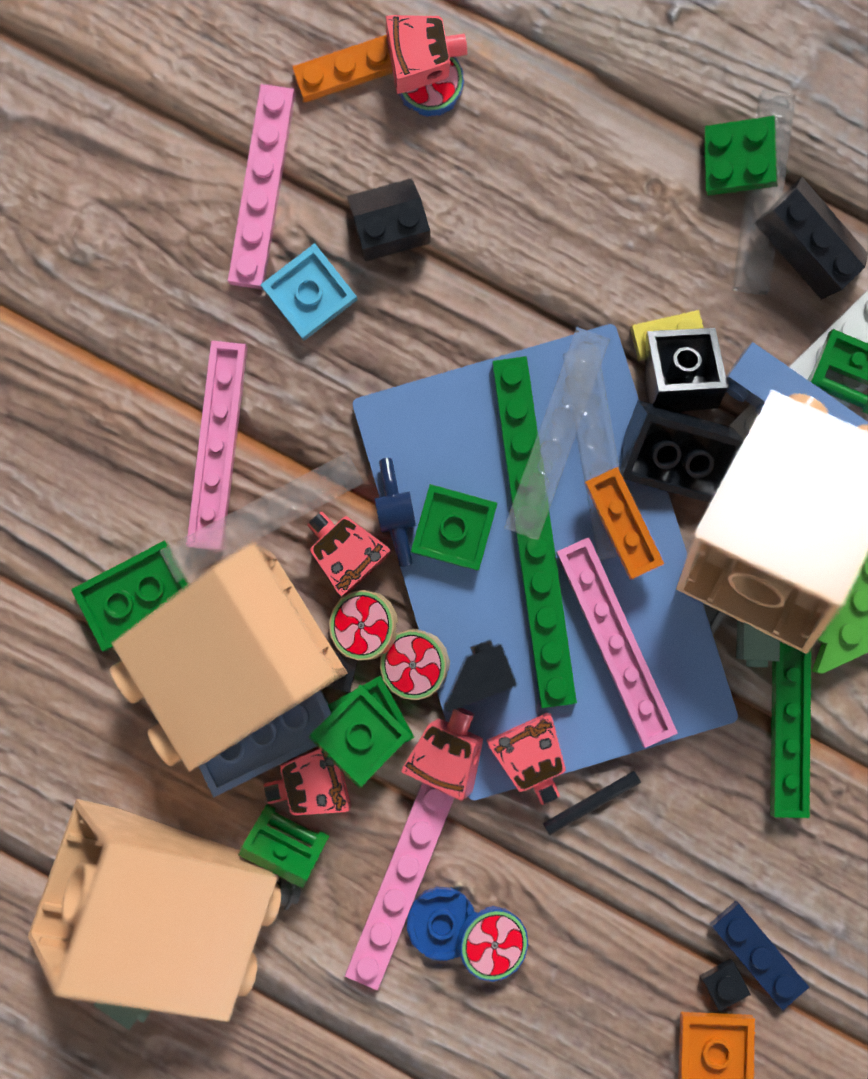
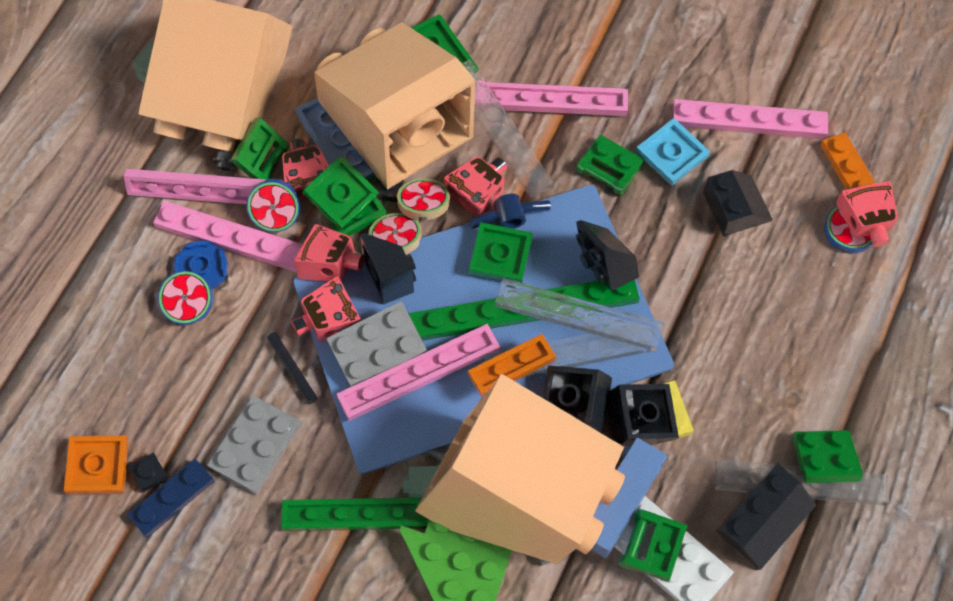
camera: 85 degrees right, 20 degrees down
(312, 370) = (615, 160): none -> green plate
(328, 931) = (189, 186): none -> bright pink plate
(367, 827) = (273, 205): none -> tile
(476, 389) = (606, 255): none -> black slope
(581, 694) = (376, 344): none -> light grey plate
(693, 851) = (254, 445): none -> light grey plate

